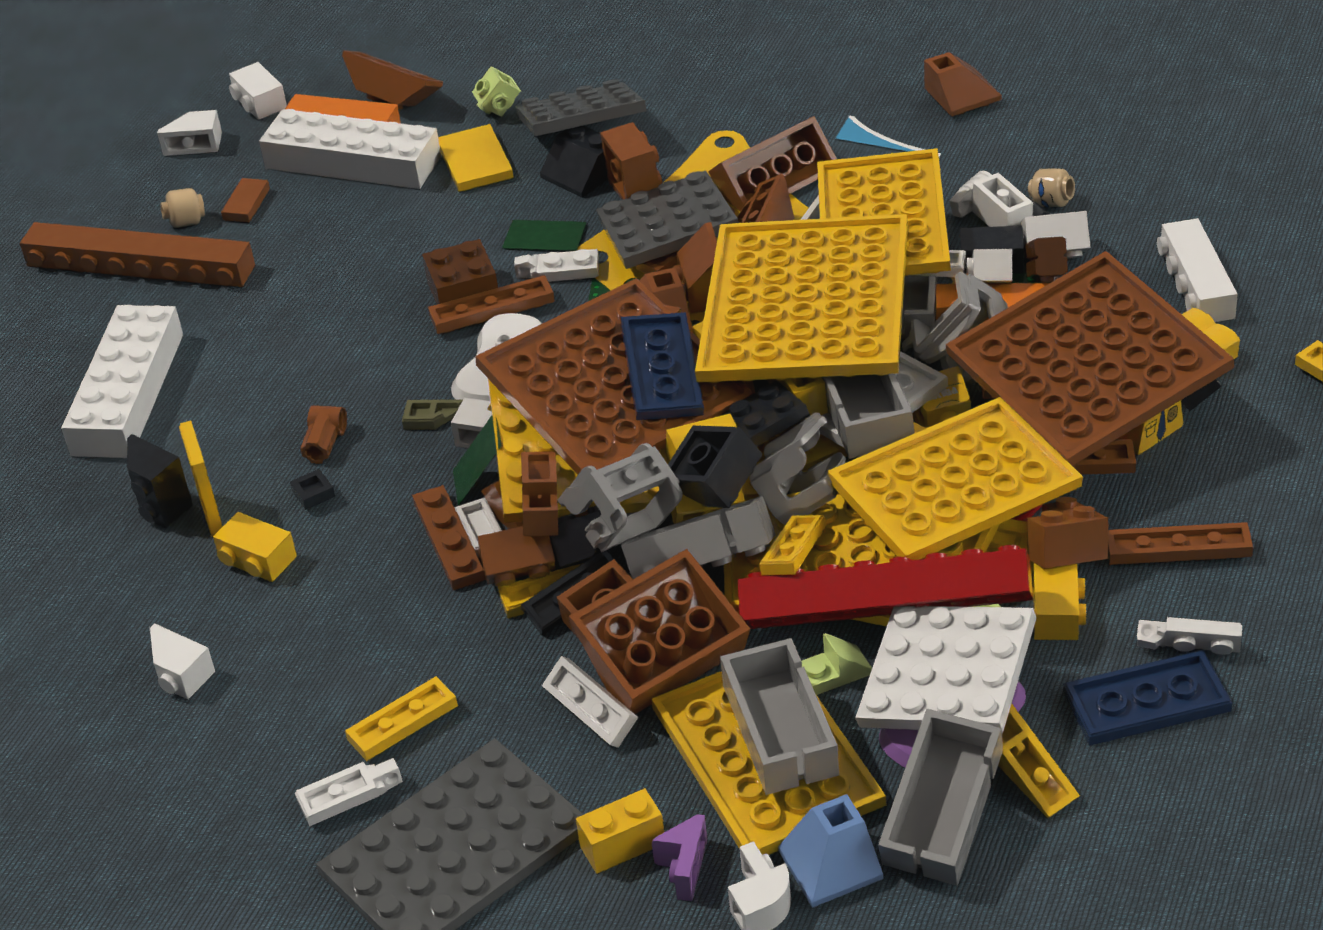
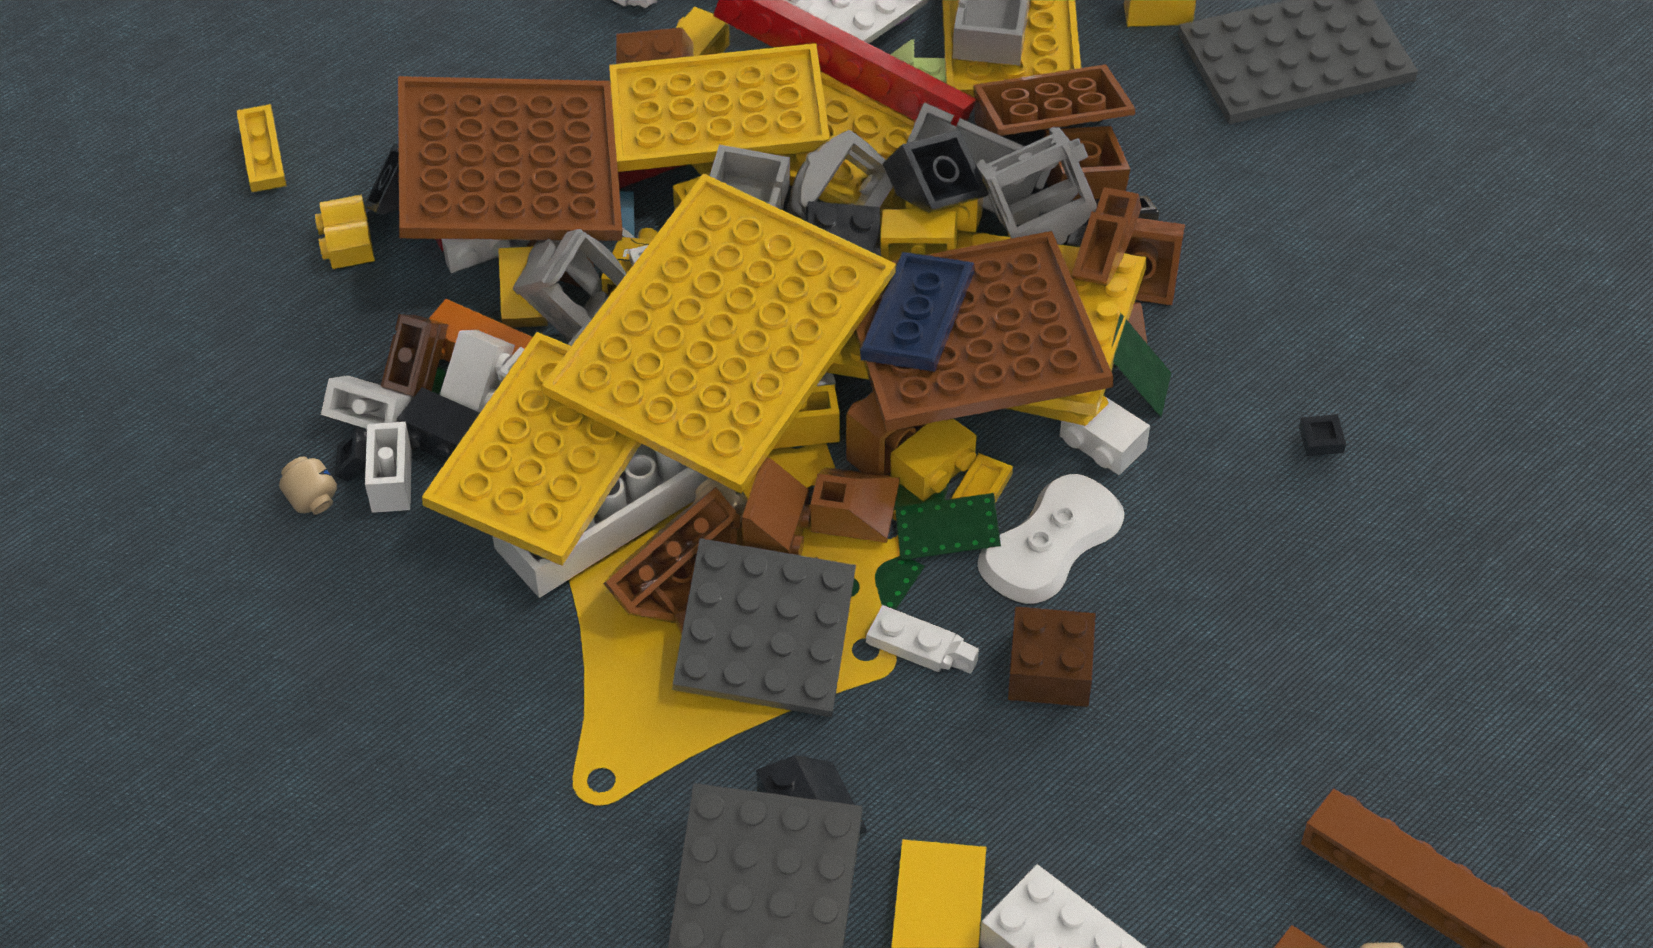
camera: 160 degrees left, 10 degrees up
(122, 380) = (1512, 677): white brick -> none
(157, 482) = (1497, 481): black slope -> none
(179, 662) = (1506, 288): white slope -> none
(200, 477) = (1448, 433): yellow tile -> none
(255, 546) = (1402, 384): yellow brick -> none
(323, 427) = (1288, 507): dark orange piece -> none
(347, 790) = (1374, 118): white hinge -> none
(401, 718) = (1306, 161): yellow plate -> none
(428, 413) = (1159, 492): olive tile -> none
(448, 537) = (1196, 333): dark orange plate -> none
(477, 520) = (1162, 328): white tile -> none
(487, 304) = (996, 605): dark orange plate -> none
(544, 235) = (912, 716): dark green sticker -> none
(590, 701) = (1143, 125): white plate -> none
(630, 160) = (757, 720): dark orange brick -> none
(789, 153) = (583, 671): dark orange slope -> none
(792, 545) = (899, 116): yellow tile -> none
(857, 132) = (430, 708): dark azure sticker -> none
(957, 84) = (262, 708): dark orange slope -> none
(963, 200) = (394, 523): white hinge -> none
(1179, 543) = (547, 55): dark orange plate -> none
(1197, 269) = (270, 311): white brick -> none

